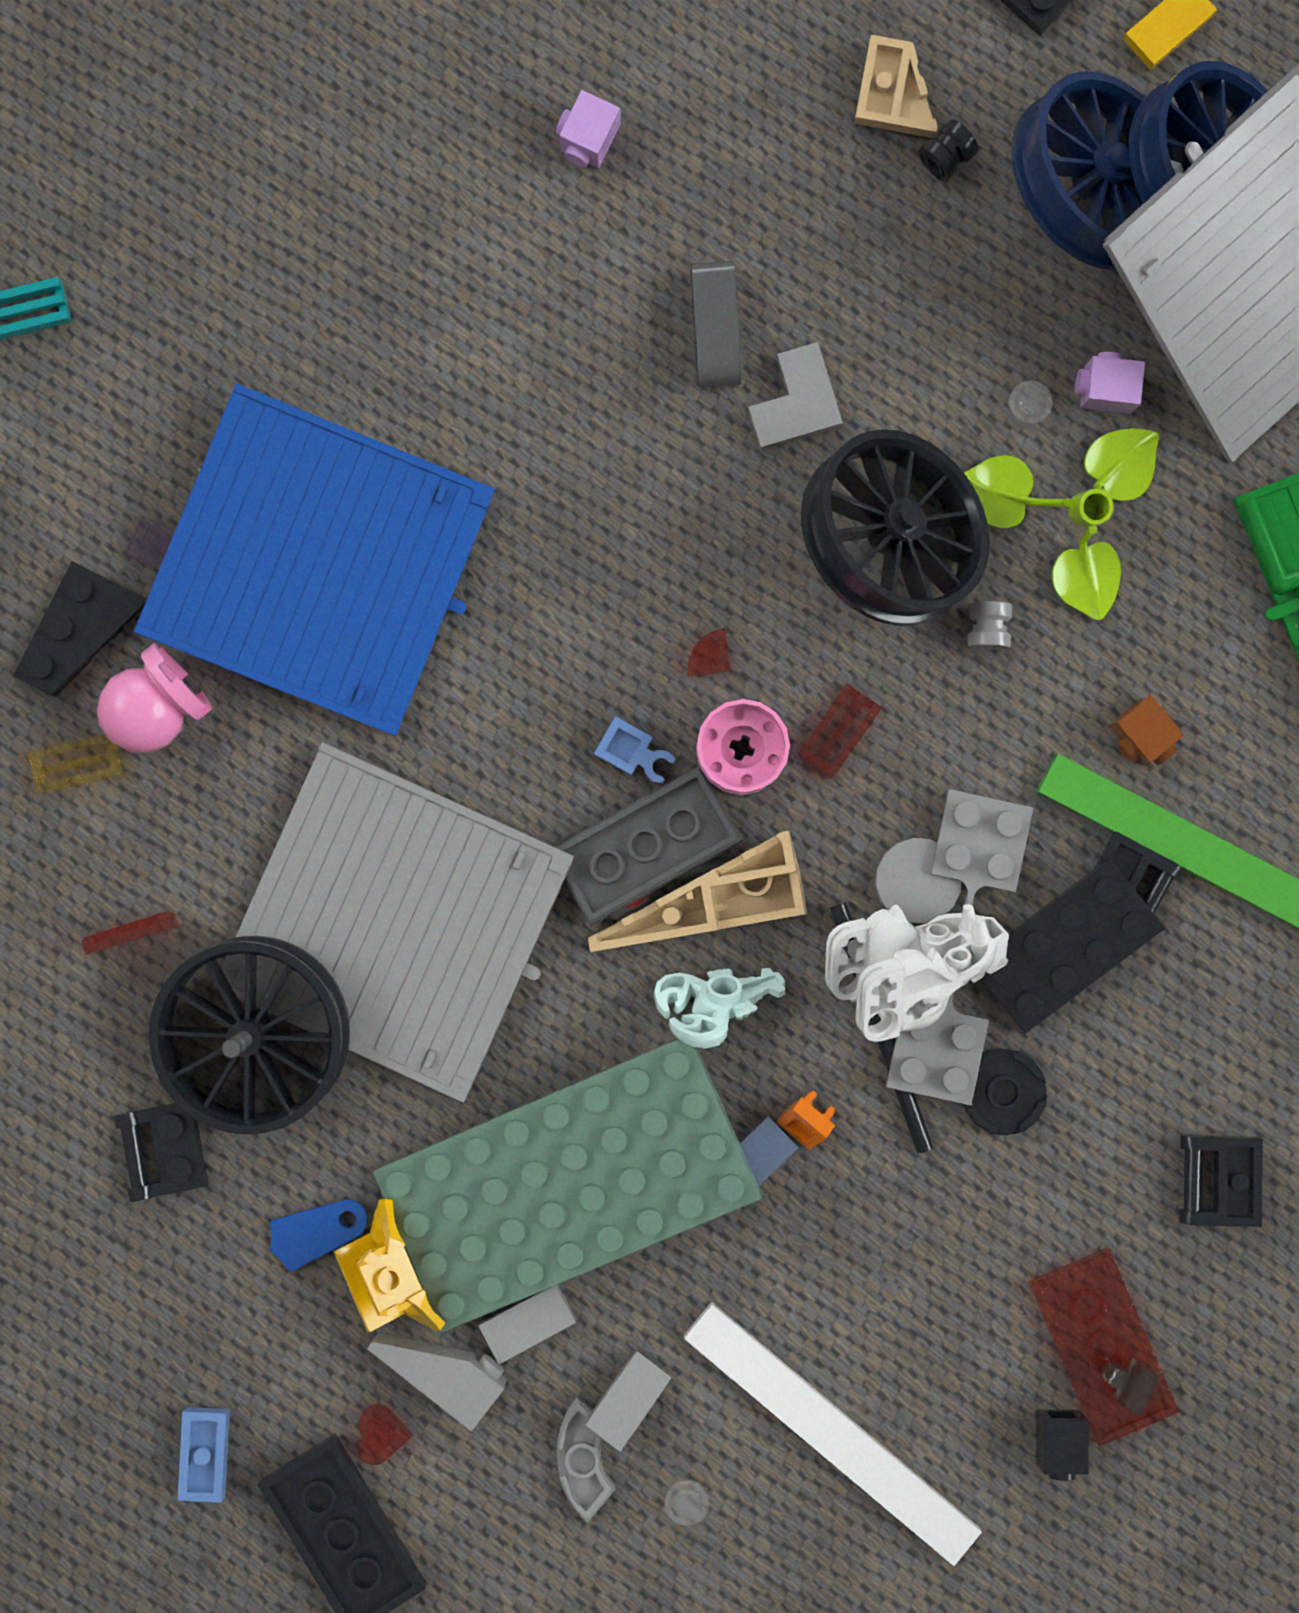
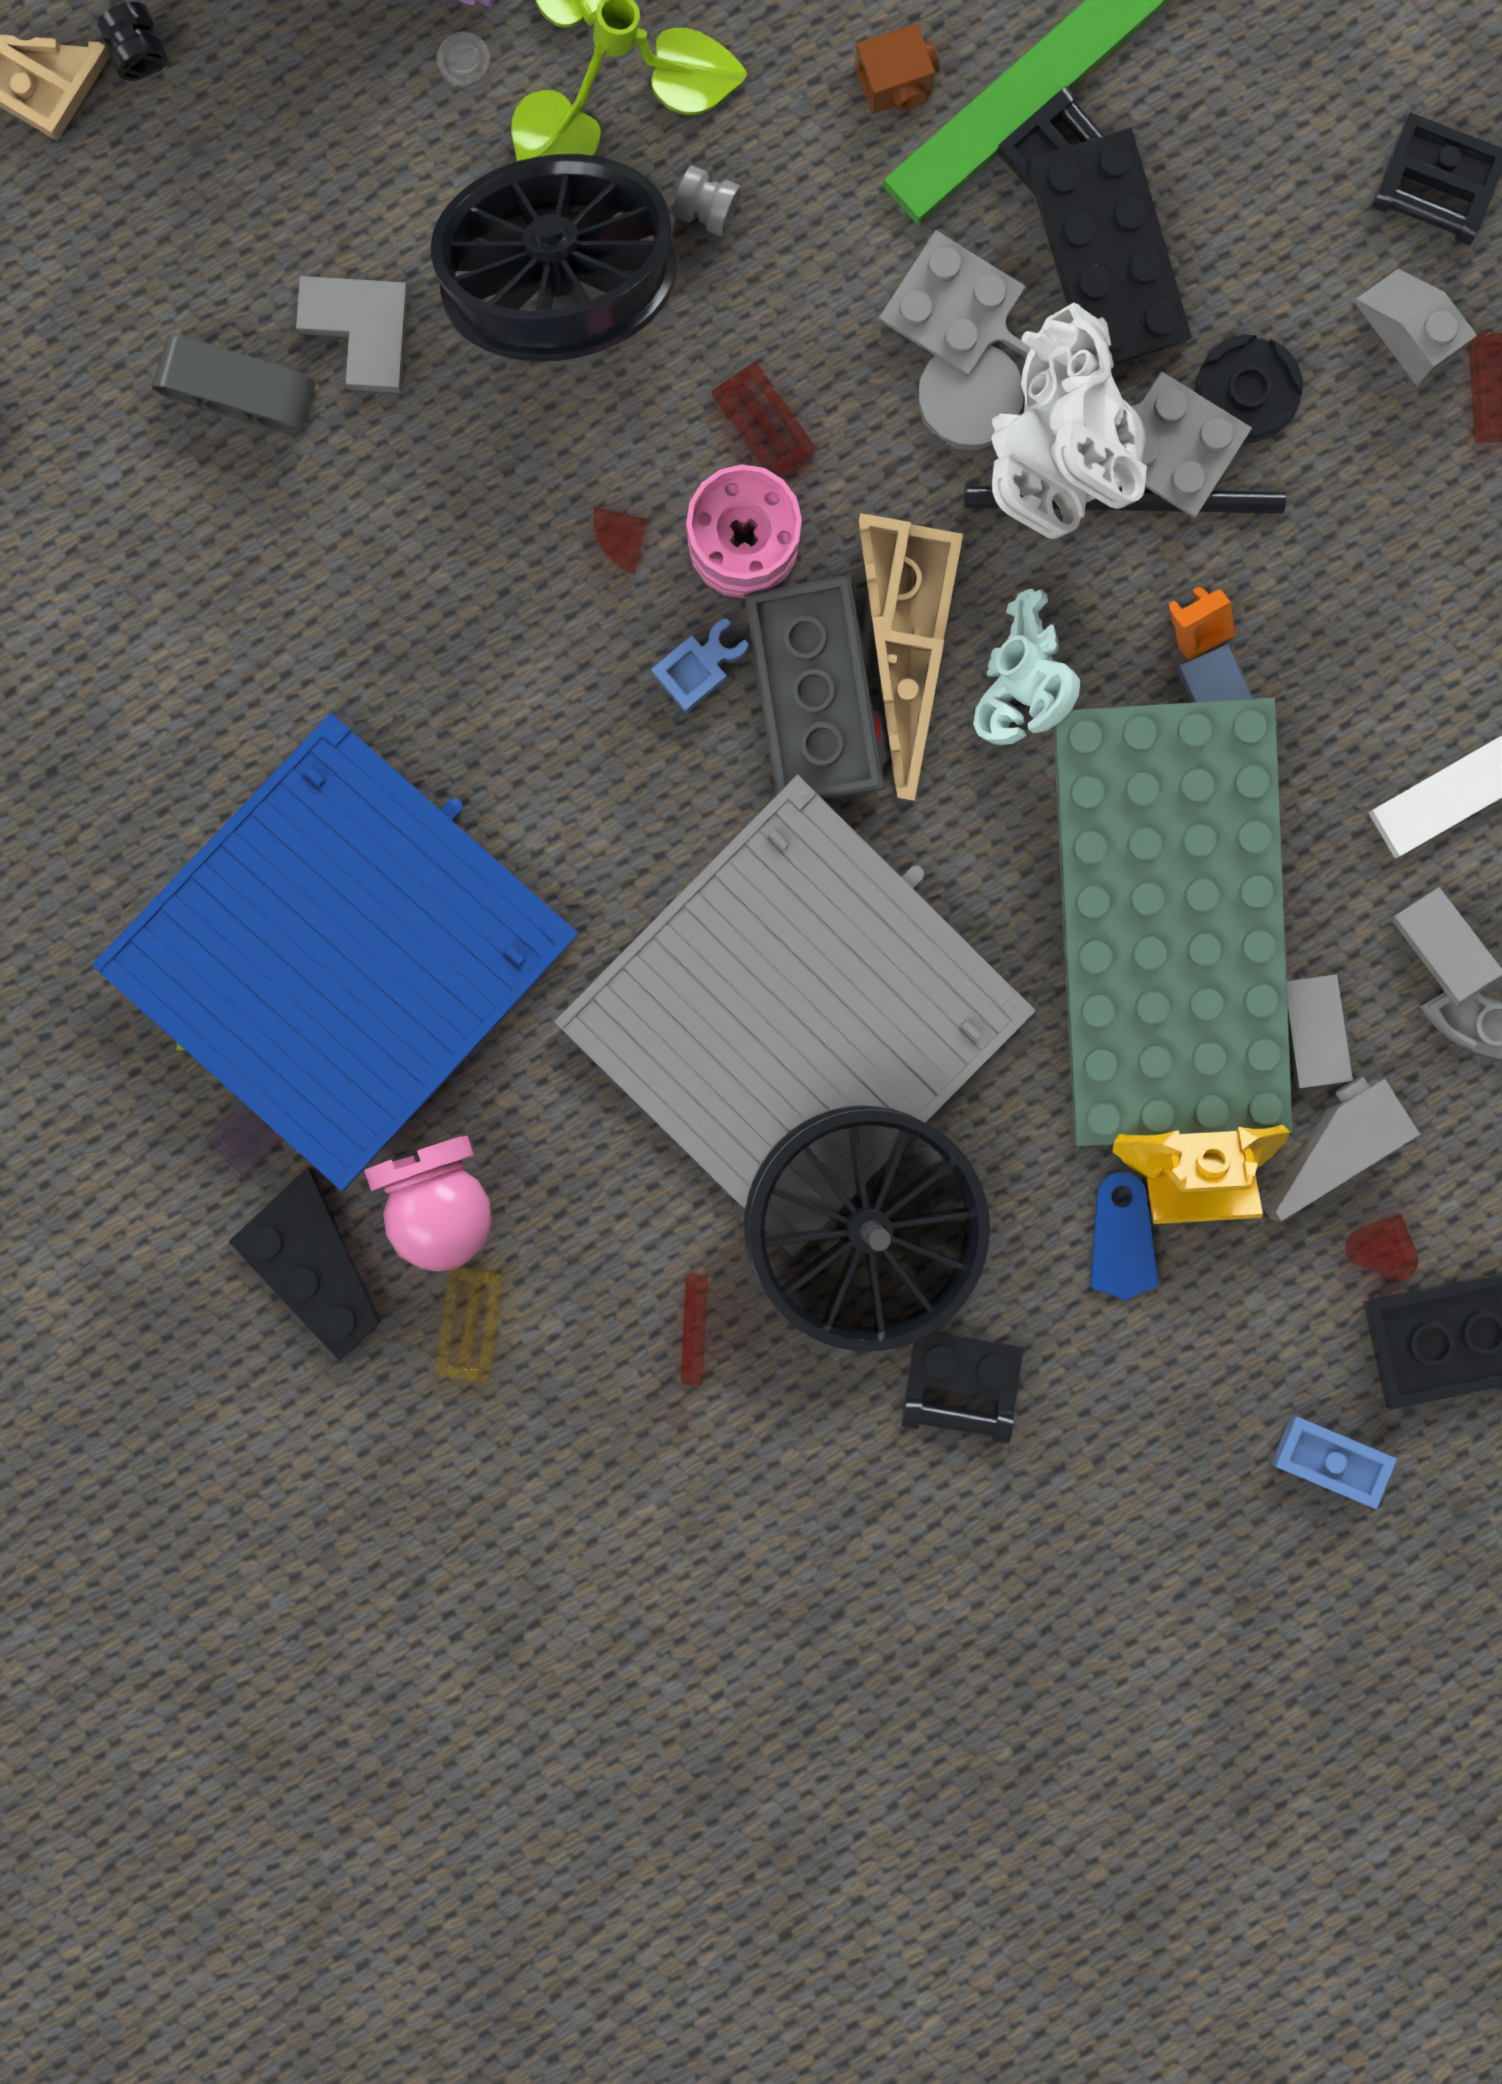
camera: 70 degrees left, 0 degrees up
(1100, 1201) = (1416, 323): none -> light grey slope

